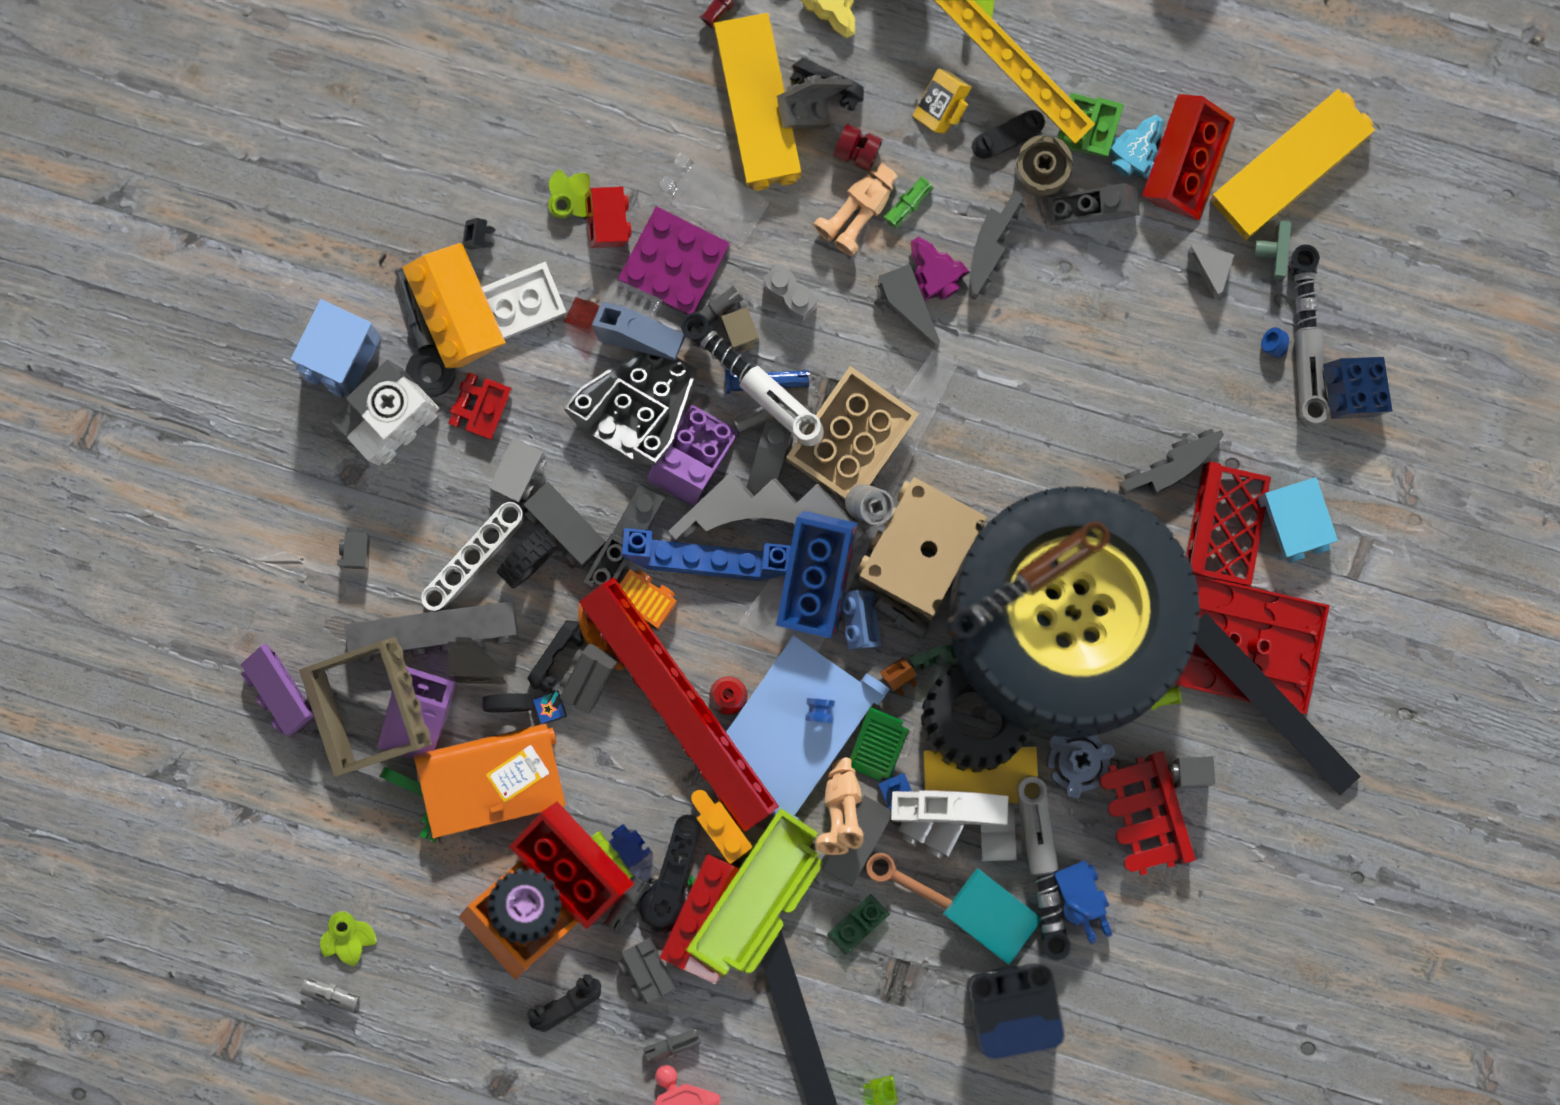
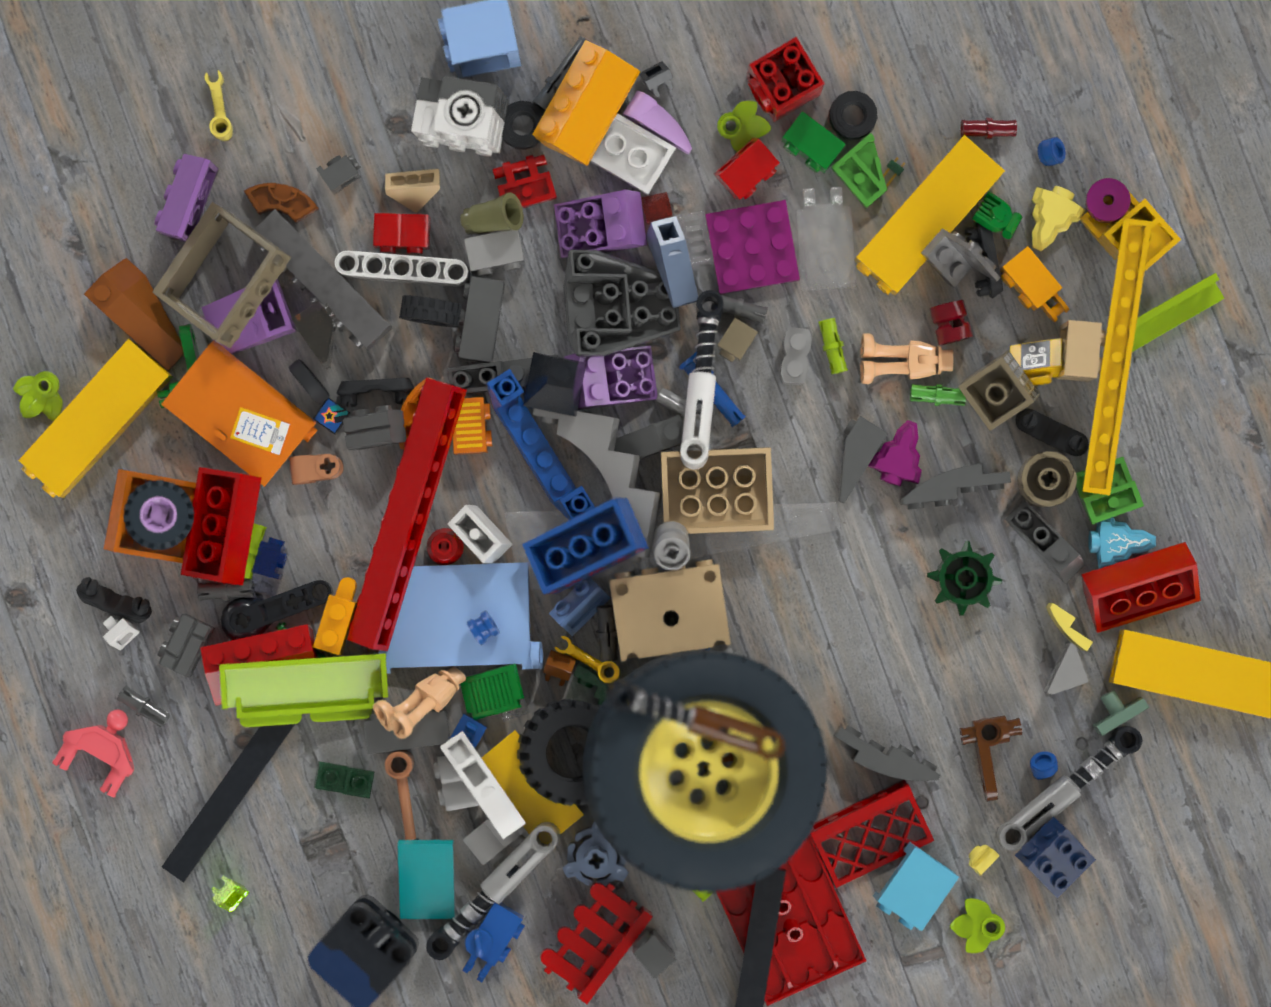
camera: 55 degrees right, 5 degrees up
(235, 614) = (220, 120): none -> light yellow brick
(332, 803) = (128, 301): none -> dark orange wedge
(340, 611) = (282, 198): none -> dark orange tile
(402, 905) = (94, 419): none -> yellow brick
(413, 499) = (413, 187): none -> tan slope
(443, 535) = (401, 232): none -> red brick
(487, 449) = (493, 215): none -> olive plant
(505, 262) = (652, 117): none -> lavender piece
(559, 131) = (784, 80): none -> red brick
(560, 368) = (601, 223): none -> medium lavender slope
(580, 759) = (310, 468): none -> nougat piece
(595, 1018) = (119, 632): none -> white tile
(624, 84) = (847, 131): none -> black tyre
(627, 149) = (812, 143): none -> green brick
(664, 501) = (554, 384): none -> black slope
(680, 128) = (862, 172): none -> bright green wing
(698, 99) = (896, 168): none -> clear green piece
(740, 656) = (479, 534): none -> white brick
(799, 46) = (998, 216): none -> green piece
(804, 257) = (833, 346): none -> lime pin
(877, 58) = (1033, 283): none -> light orange brick
(918, 644) = (591, 661): none -> yellow brick
(942, 149) = (999, 390): none -> dark tan brick
(960, 59) = (1081, 350): none -> tan brick
(1070, 276) = (975, 566): none -> dark green brick
(1170, 240) = (1063, 621): none -> light yellow slope
(1223, 354) = (1003, 730): none -> reddish brown piece
(1314, 448) = (982, 858): none -> light yellow plate
(1364, 497) = (973, 925): none -> lime plate

